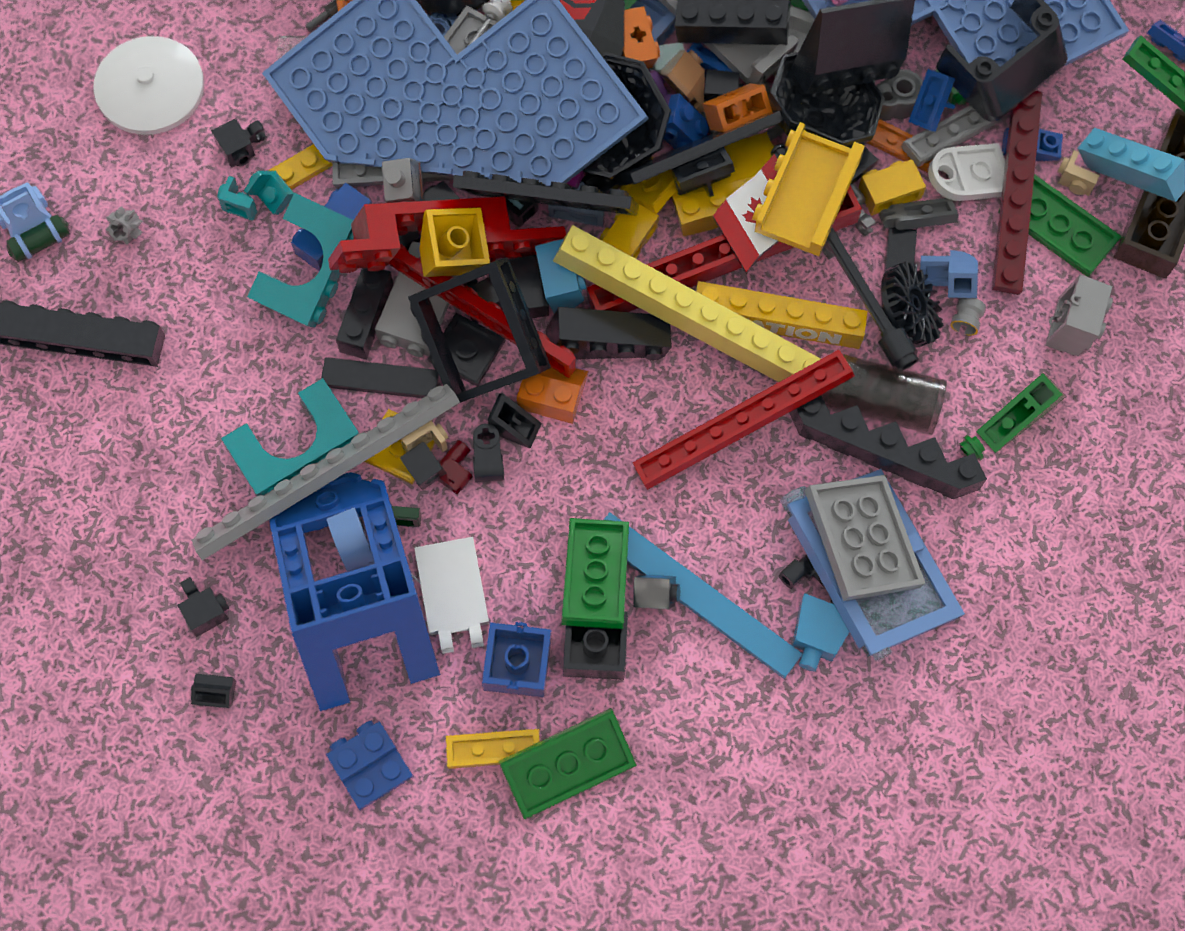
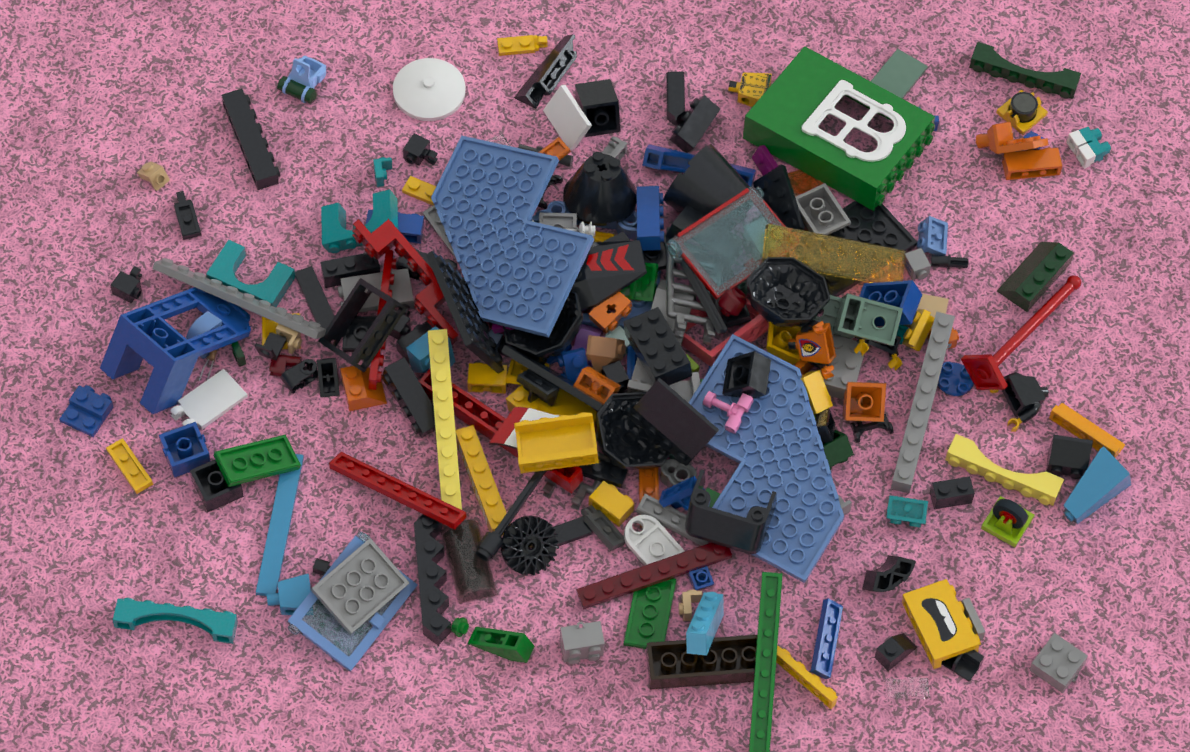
camera: 60 degrees right, 10 degrees down
(42, 485) = (154, 174): none -> tan bracket
(124, 225) = (330, 125): light grey gear -> none
(141, 476) = (186, 217): none -> black hinge
(213, 690) = (85, 316): black piece -> none
(270, 190) = (400, 181): teal bracket -> none
(402, 180) = (431, 238): light grey torso -> none
(452, 242) = (404, 279): yellow slope -> none
(567, 763) = (141, 505): green tile -> none
(655, 591) = (265, 498): brick -> none
(732, 862) = (133, 613): none -> teal arch
(956, 271) = (568, 561): medium blue brick -> none
(968, 314) = (548, 585): light grey wheel -> none

